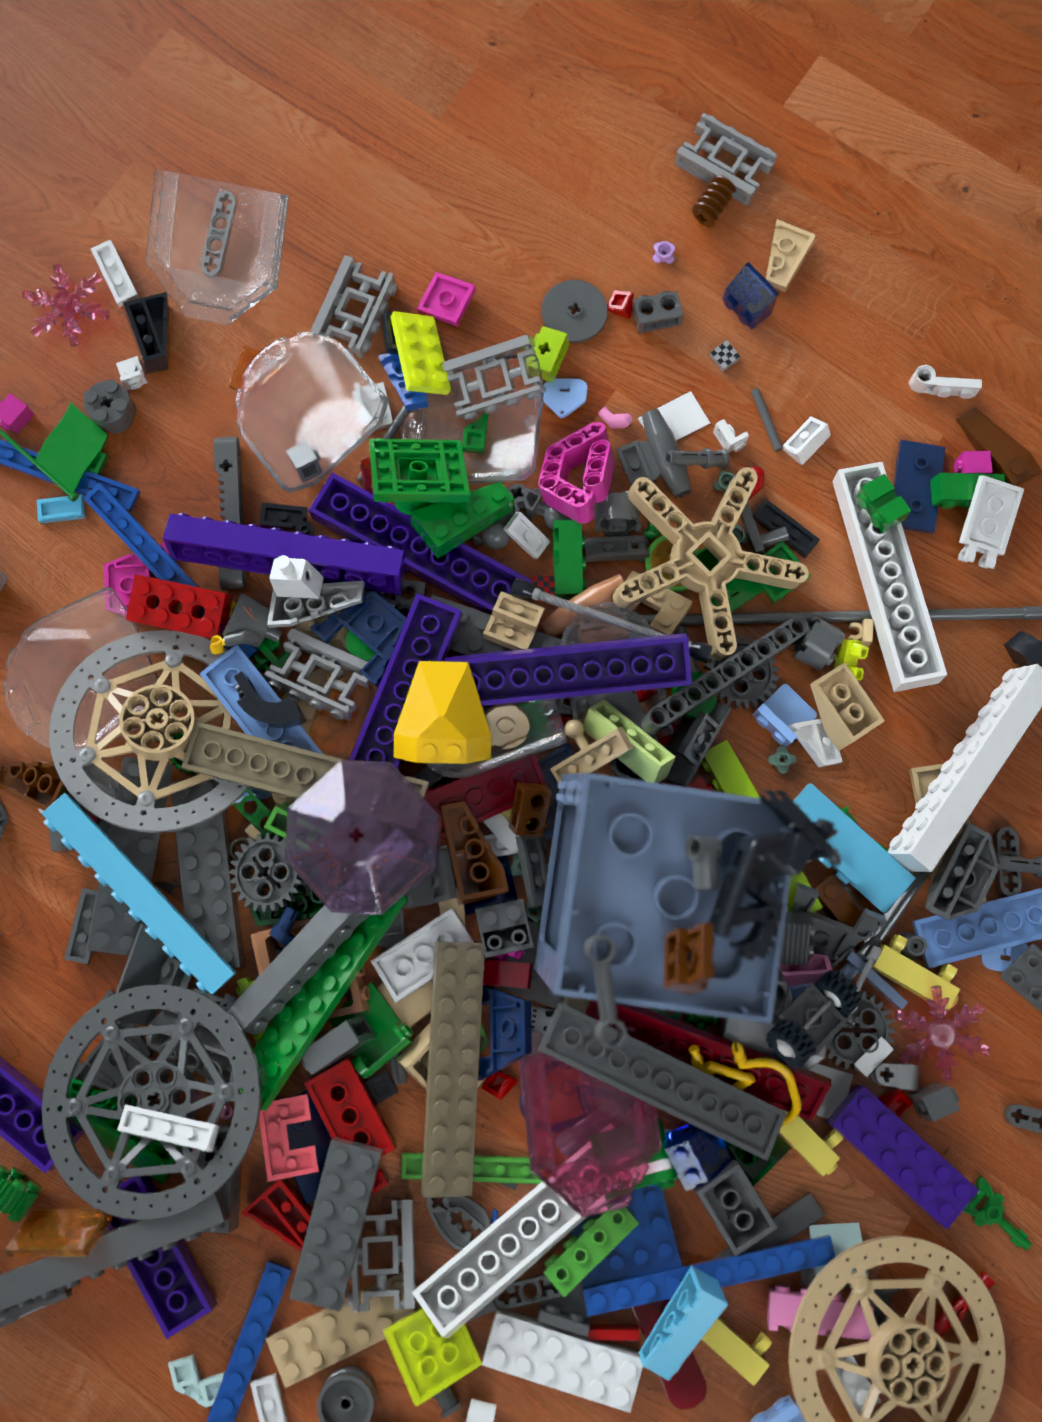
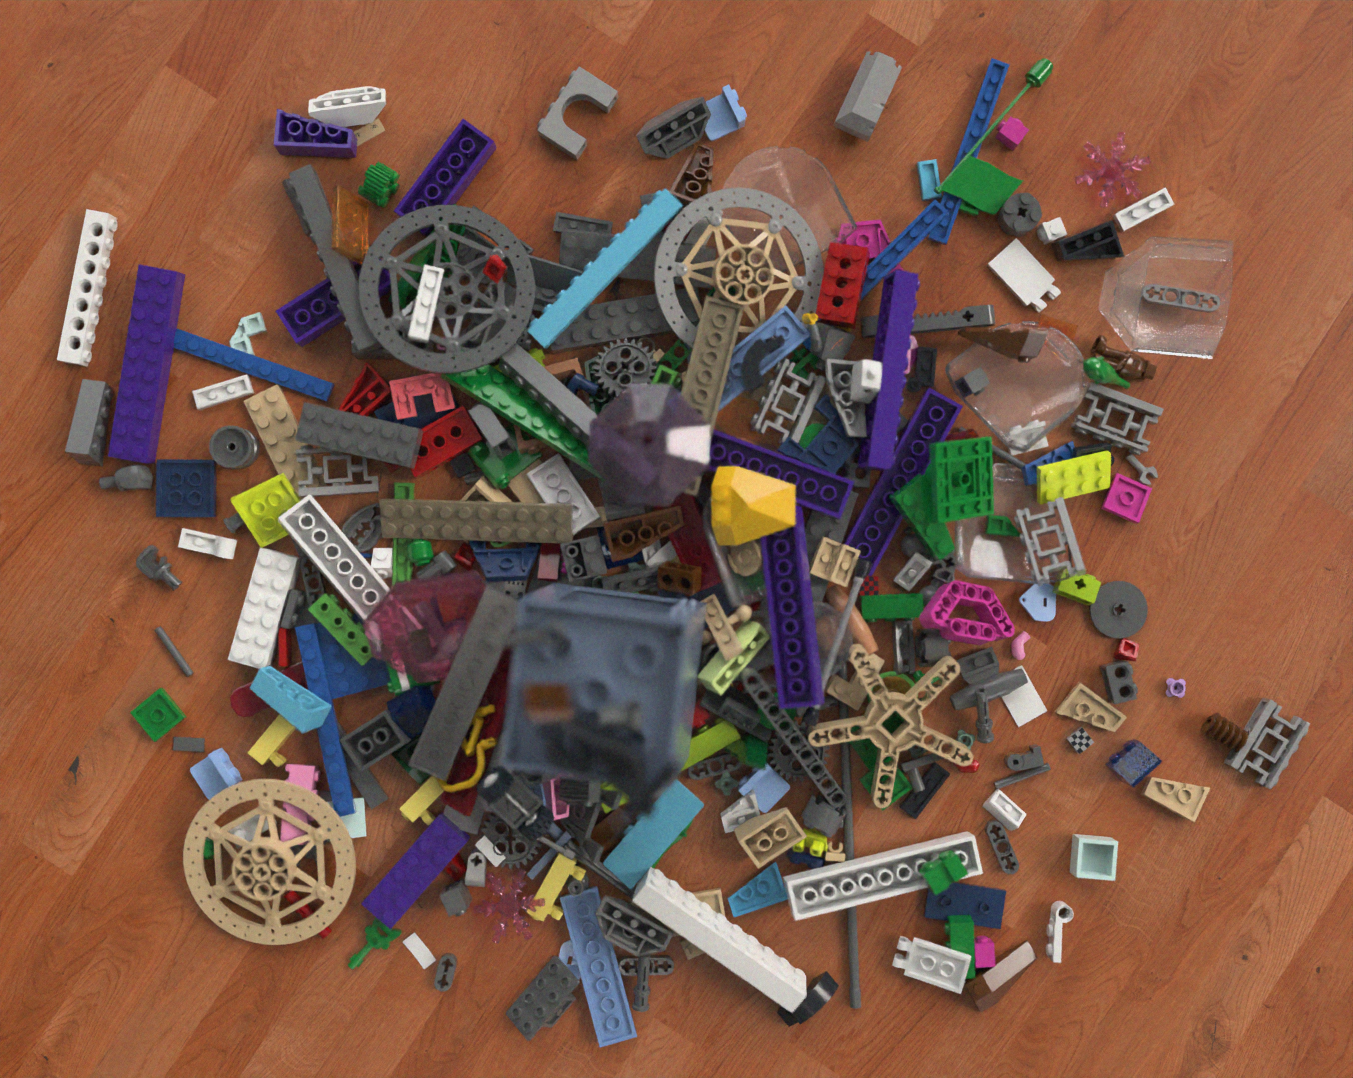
camera: 90 degrees right, 10 degrees up
(129, 1036) = (494, 268): none -> red slope
(182, 404) = (1023, 275): none -> white tile
(259, 420) = (1015, 345): none -> reddish brown wedge
(291, 293) = (1128, 363): none -> reddish brown piece
(299, 316) = (1102, 372): none -> green piece
(414, 282) = (1142, 470): none -> light grey bar
(491, 1144) = (420, 552): none -> green head
(503, 1195) = (382, 562): none -> white bracket
(510, 1118) = (439, 566): none -> dark grey piece
(687, 343) = (1089, 707): none -> tan wing
(726, 437) = (1004, 741): white bracket -> none
(742, 726) = (749, 750): none -> dark green wedge
(748, 414) = (1025, 760): none -> dark grey leg
(766, 765) = (727, 756): none -> dark grey beam
(856, 436) = (1002, 861): none -> dark grey beam
(859, 342) = (1093, 857): none -> light aqua piece
(869, 666) = (805, 857): none -> clear blue plate
(913, 722) = (759, 892): none -> dark azure wing
(985, 806) = (690, 949): none -> tan tile
(1002, 1153) = (419, 950): none -> white sticker

